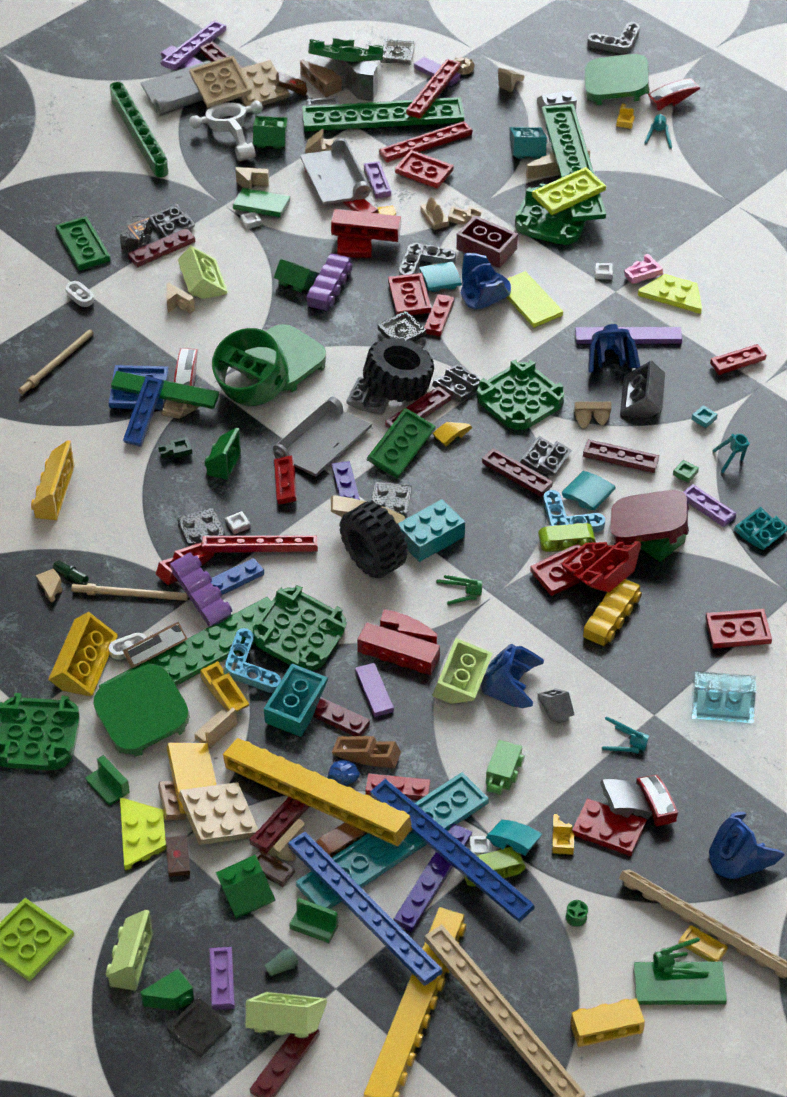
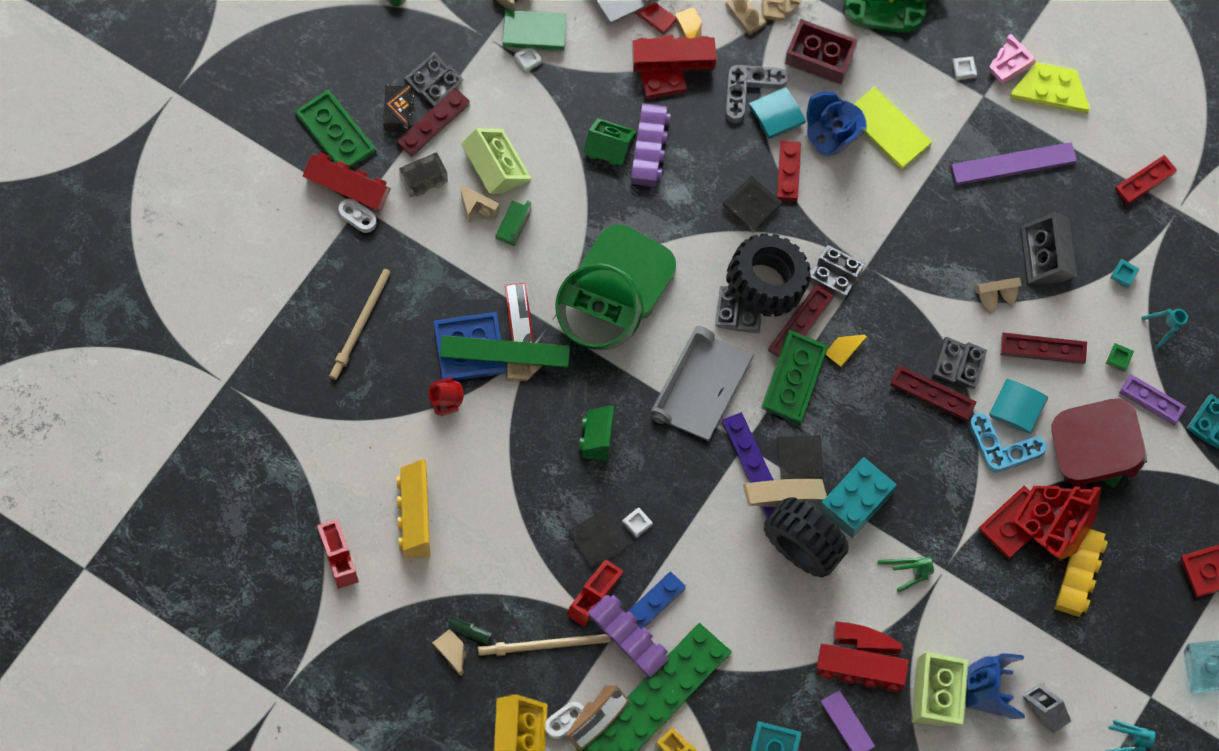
camera: 15 degrees left, 20 degrees up
(77, 269) = (347, 182): none -> red brick
(106, 411) = (446, 394): none -> red piece
(141, 275) = (423, 175): none -> clear smoke brick
(143, 411) = (489, 388): blue plate -> none
(177, 447) = (541, 428): plate -> none
(204, 315) = (513, 222): none -> green panel
(243, 667) = (700, 728): medium azure beam -> none
(280, 543) = (671, 551): red tile -> none
(285, 480) = (676, 453): red plate -> none
(299, 629) = (748, 663): green tile -> none
(409, 294) = (747, 147): plate -> none
(520, 395) = (910, 278): green tile -> none
(564, 536) = (1008, 477): lime beam -> none
(617, 340) = (1013, 188): blue piece -> none

